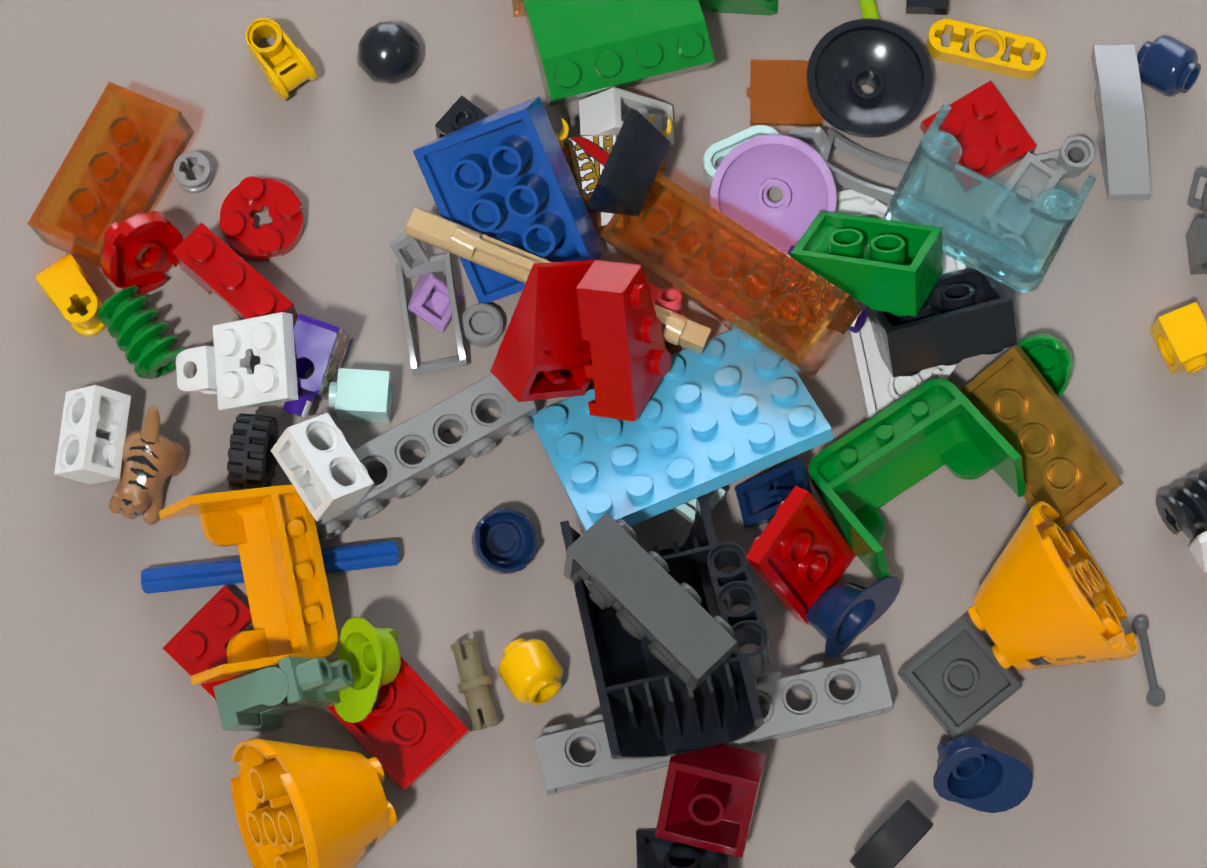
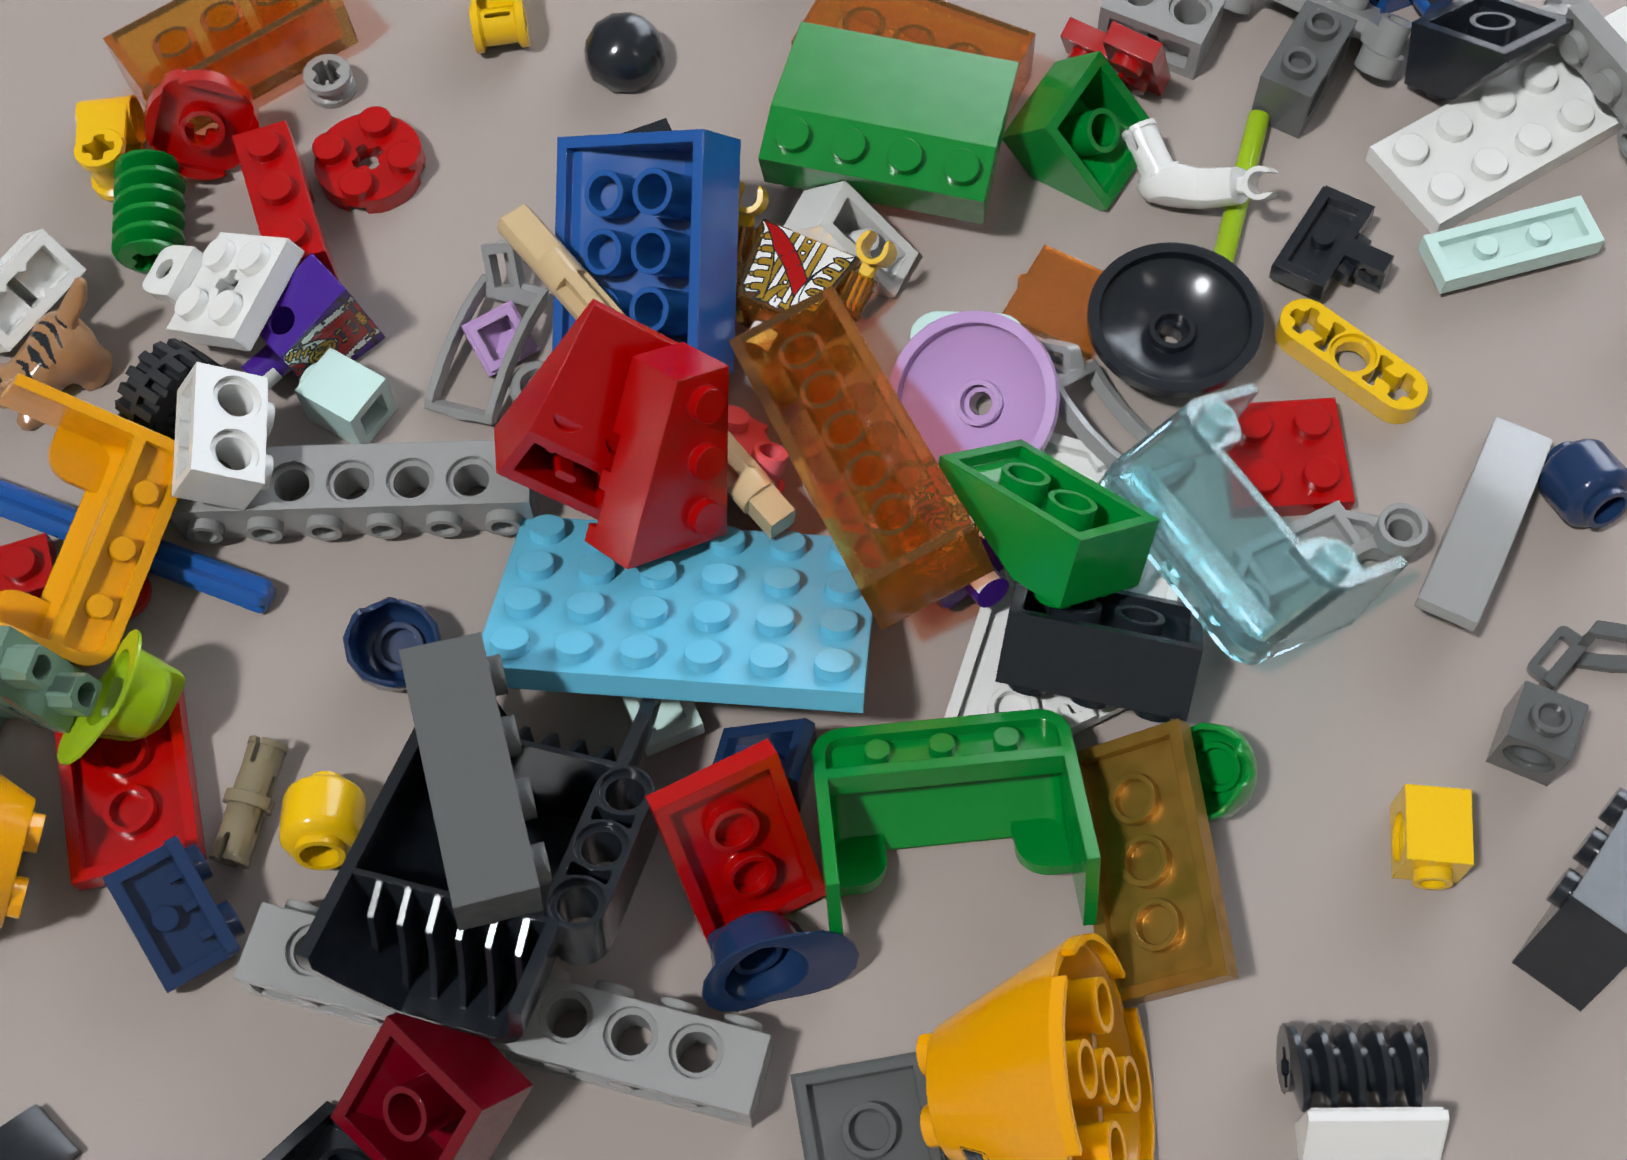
camera: 30 degrees right, 10 degrees down
(481, 771) = (175, 913): none -> dark blue bracket
(630, 167) = (800, 263): black slope -> none

